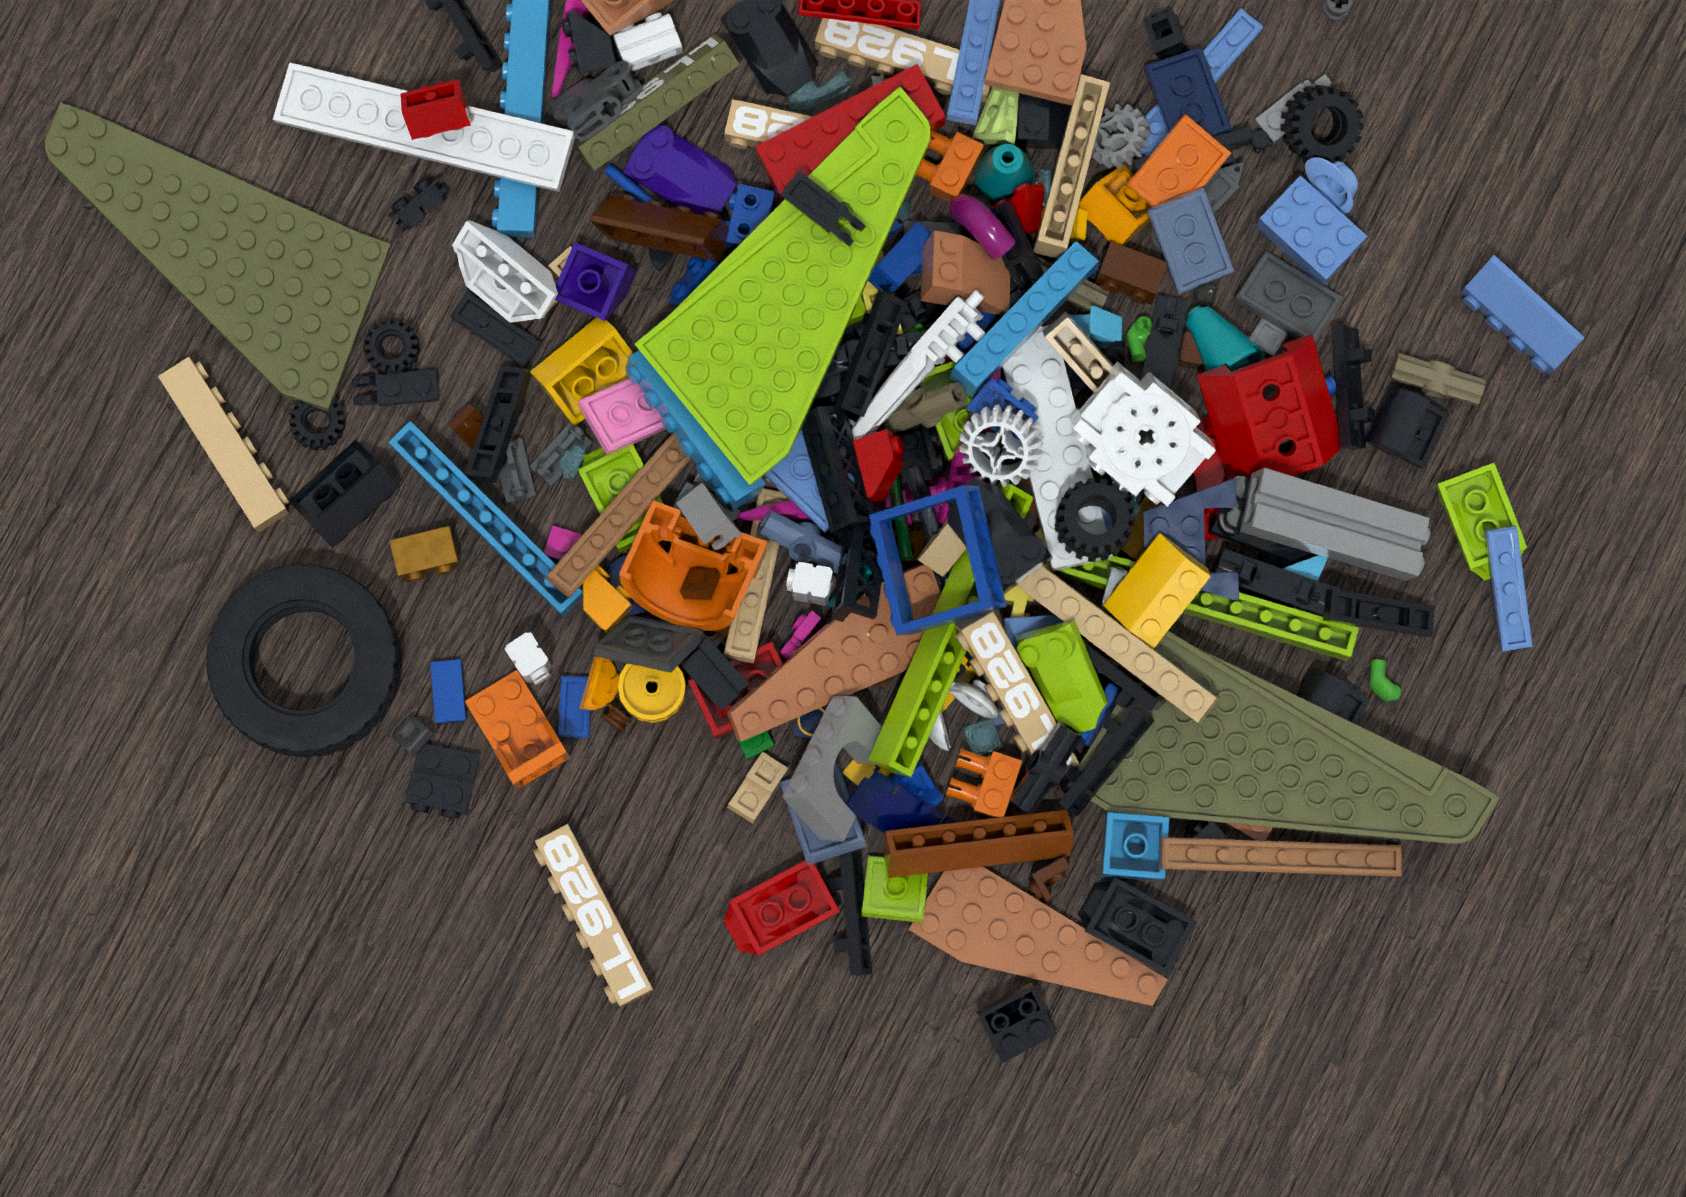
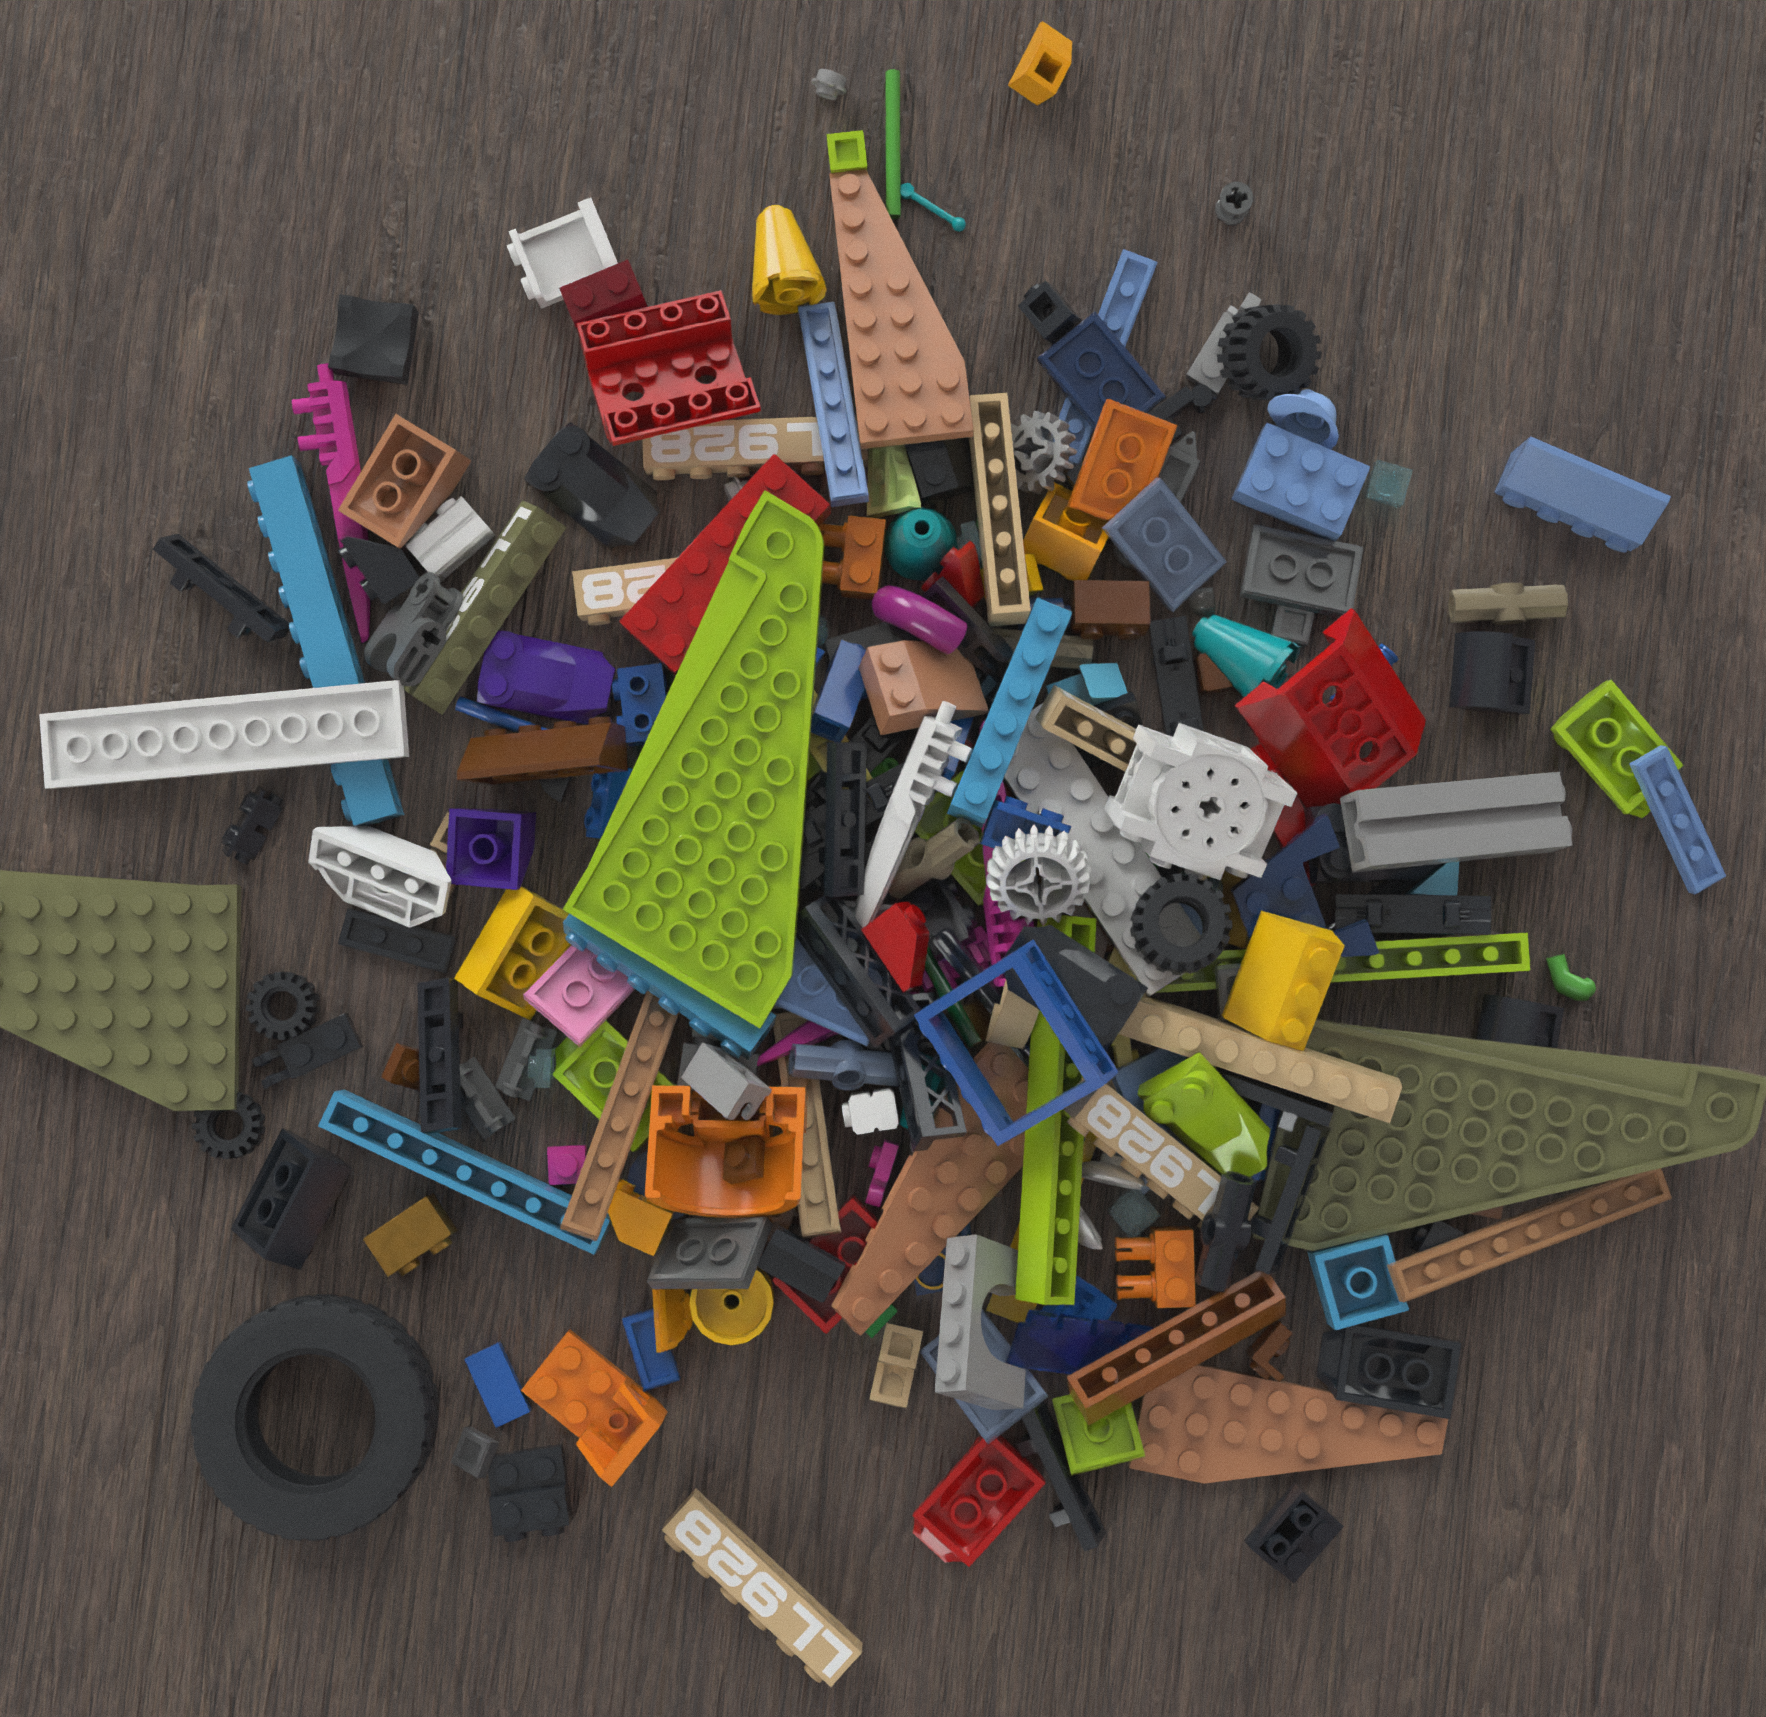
camera: 15 degrees left, 5 degrees up
(223, 443) = (129, 1191): tan brick -> none
(435, 109) = (225, 713): red brick -> none
(529, 659) = (577, 1319): white brick -> none
(616, 718) = (703, 1347): reddish brown bush -> none
(811, 95) = (663, 533): clear light blue slope -> none
(820, 207) = (721, 669): black hinge -> none
(1137, 337) = (1143, 678): bright green arm -> none
(1348, 361) = (1409, 651): black hinge -> none
(1378, 613) = (1542, 906): black hinge -> none
(1379, 256) = (1388, 483): none -> clear light blue plate

